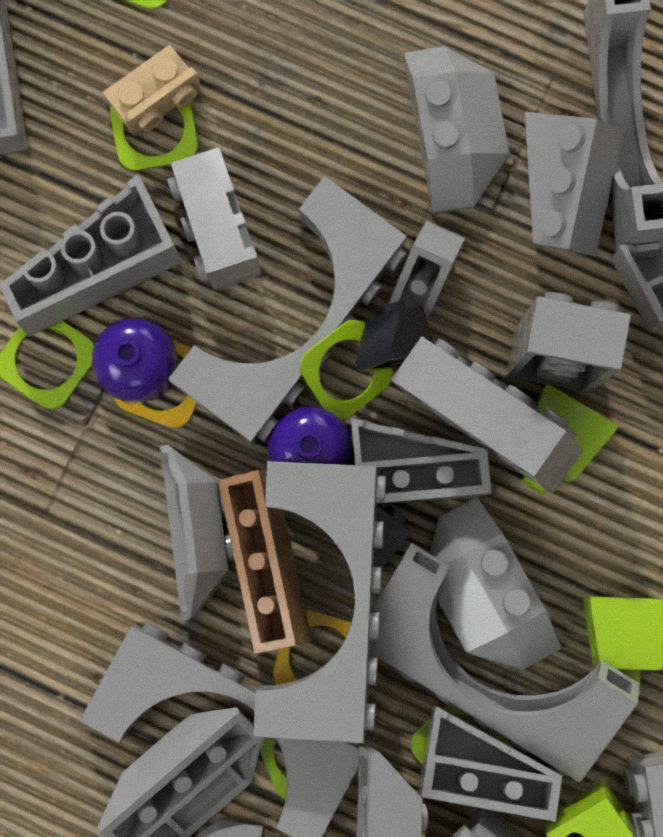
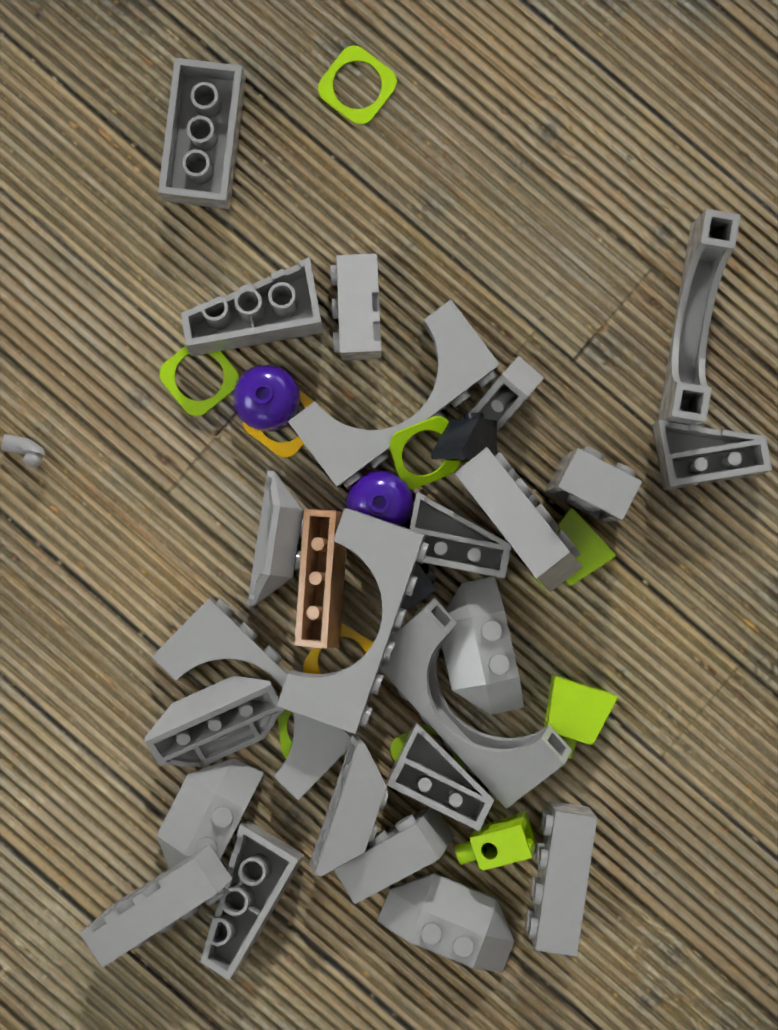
camera: 15 degrees right, 5 degrees up
(137, 162) = (309, 197): lime piece -> none
(153, 91) = (339, 191): tan bracket -> none
(456, 126) = (564, 286): light grey wedge -> none
(569, 179) = (636, 357): light grey wedge -> none

